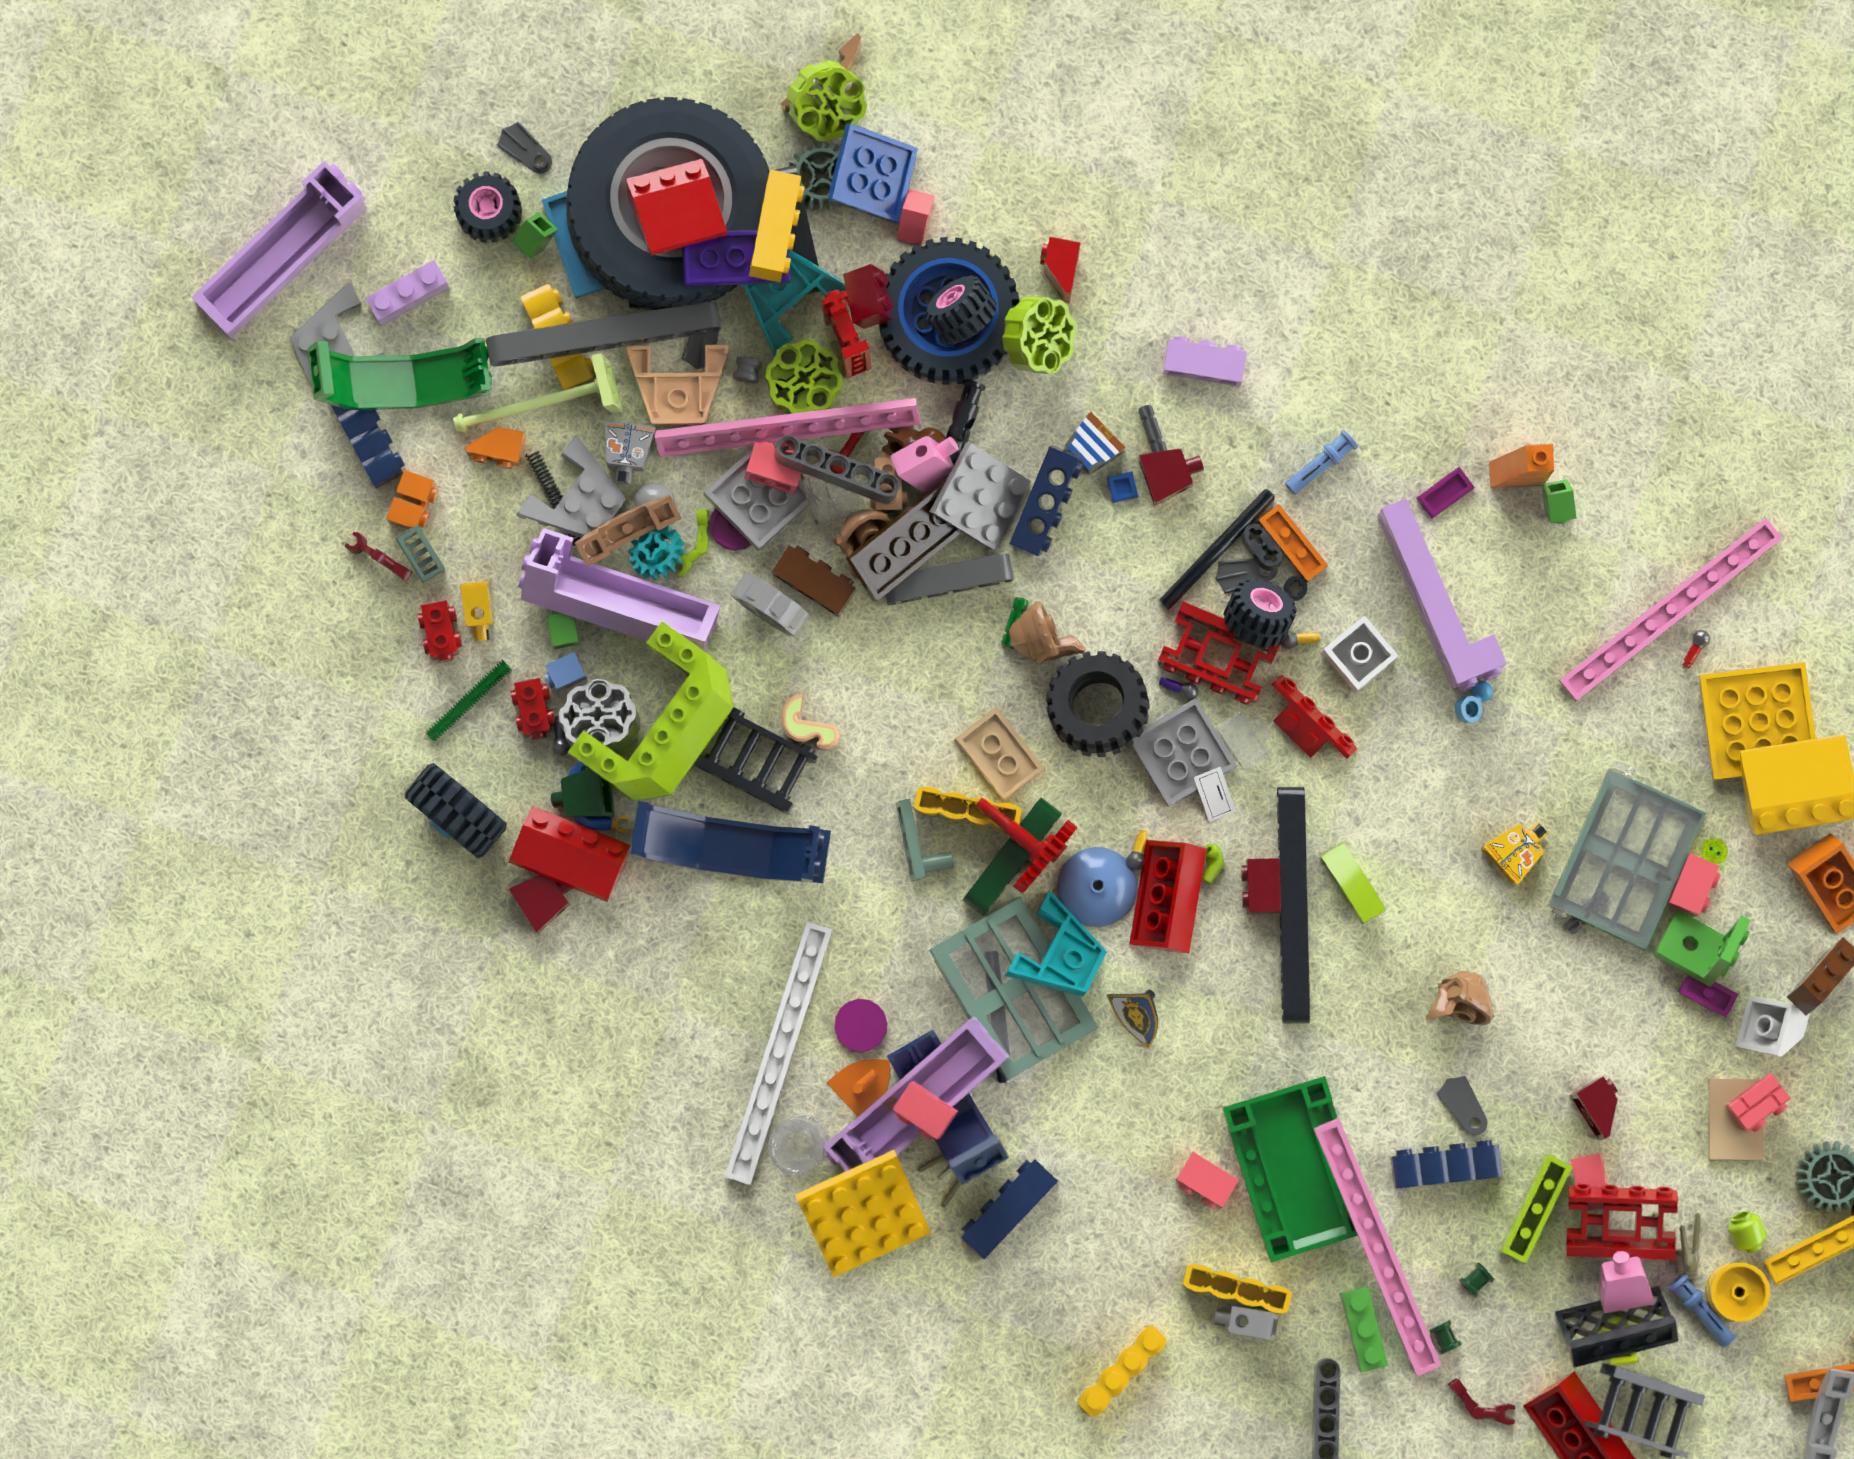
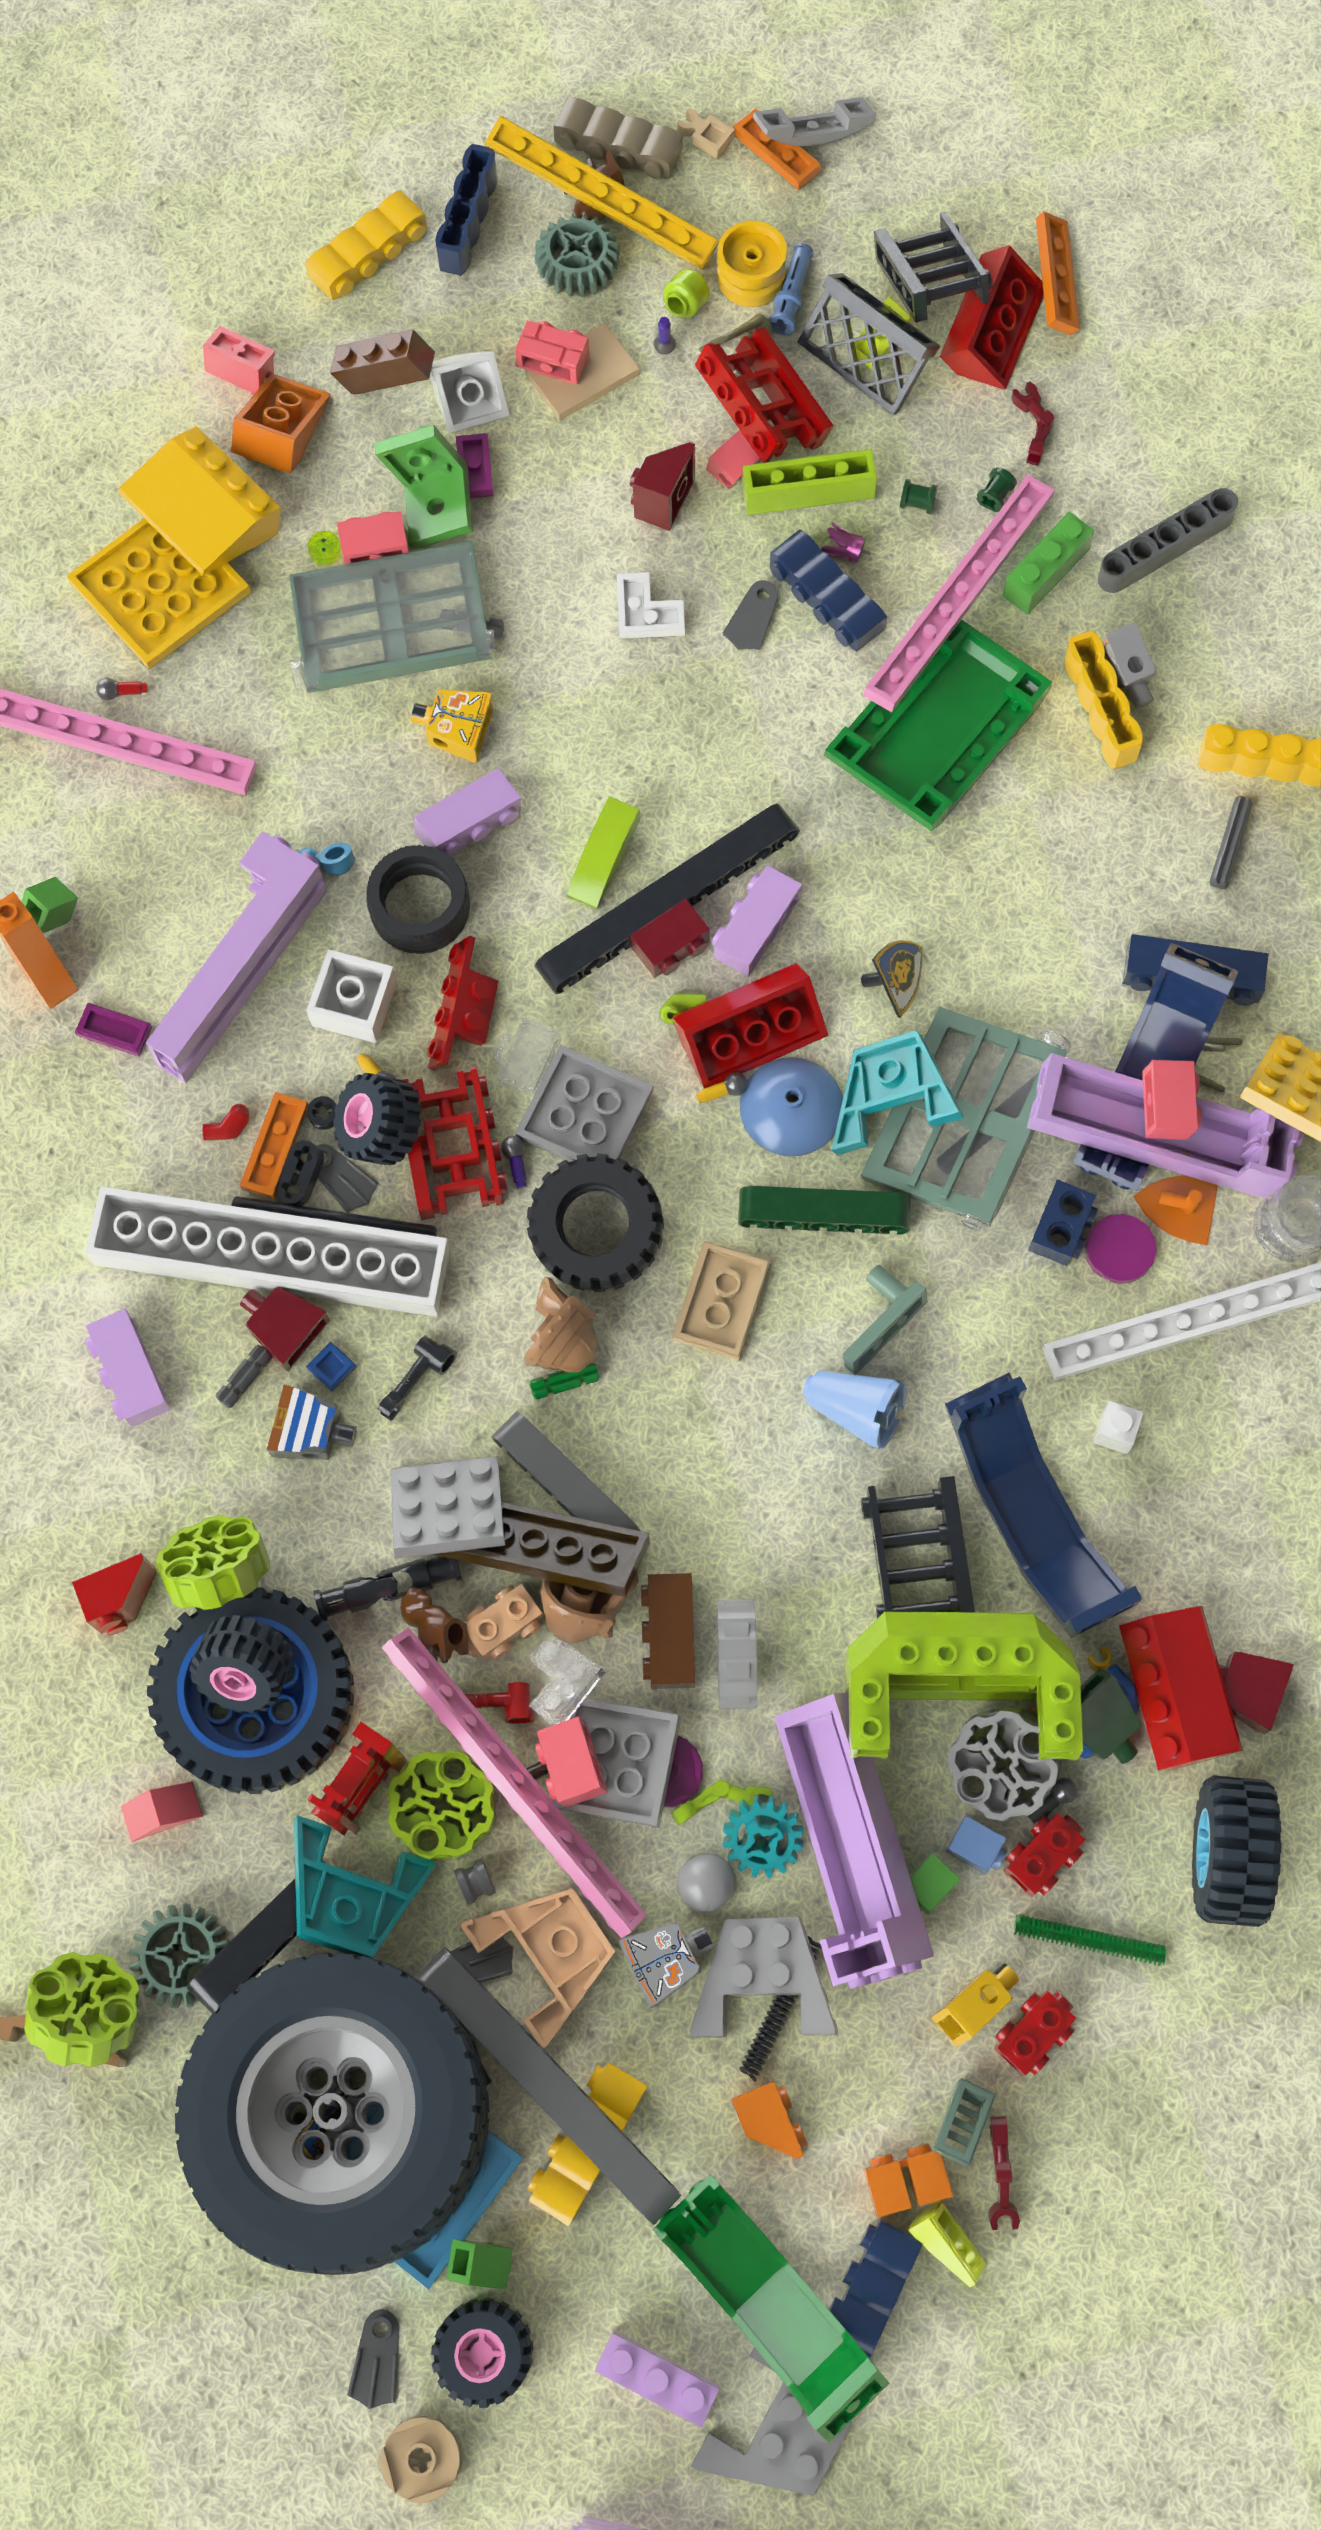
camera: 125 degrees left, 10 degrees down
(372, 499) = (947, 2242): none -> neon yellow slope
(450, 126) = (441, 2471): none -> tan plate
(604, 385) = (610, 2042): yellowish green tile -> none
(627, 527) = (759, 1890): medium nougat slope -> none
(675, 207) = (335, 2090): red slope -> none
(723, 261) = (350, 1974): dark purple tile -> none
(749, 936) = (1118, 1427): none -> white brick
(775, 226) = (279, 1947): yellow brick -> none
(807, 731) = (847, 1522): animal -> none
(829, 458) = (537, 1696): dark grey beam -> none
(868, 296) = (286, 1790): dark red brick -> none
(872, 173) = (139, 1893): plate -> none
(873, 787) = (858, 1403): none -> light blue cone
(906, 995) = (1058, 1221): none -> dark blue brick
(925, 462) = (449, 1589): bright pink torso -> none
(960, 808) = (804, 1280): yellow brick -> none
(1024, 536) = (351, 1447): dark blue brick -> none
(1040, 853) = (803, 1165): red gear -> none
(1081, 1302) = (1231, 842): none -> dark grey axle
(1086, 551) = (430, 1356): none -> black brick
(1206, 1180) = (1016, 799): coral brick -> none
(1214, 794) = (606, 1049): white sticker -> none
(1220, 493) = (268, 1251): none -> white brick
(1238, 950) = (756, 920): none -> lavender brick
(1325, 524) = (231, 1125): none -> red arm
(1334, 456) = (148, 1169): medium blue pin -> none
(1431, 730) = (411, 862): none -> black tyre
(1439, 813) = (468, 814): none -> lavender brick
(1463, 998) = (648, 675): medium nougat head -> none
(1470, 1206) = (849, 544): none -> flat silver piece
(1516, 1027) = (641, 616): none -> white plate
(1624, 1284) = (819, 356): bright pink torso -> none
(1720, 1192) = (664, 342): none -> piece

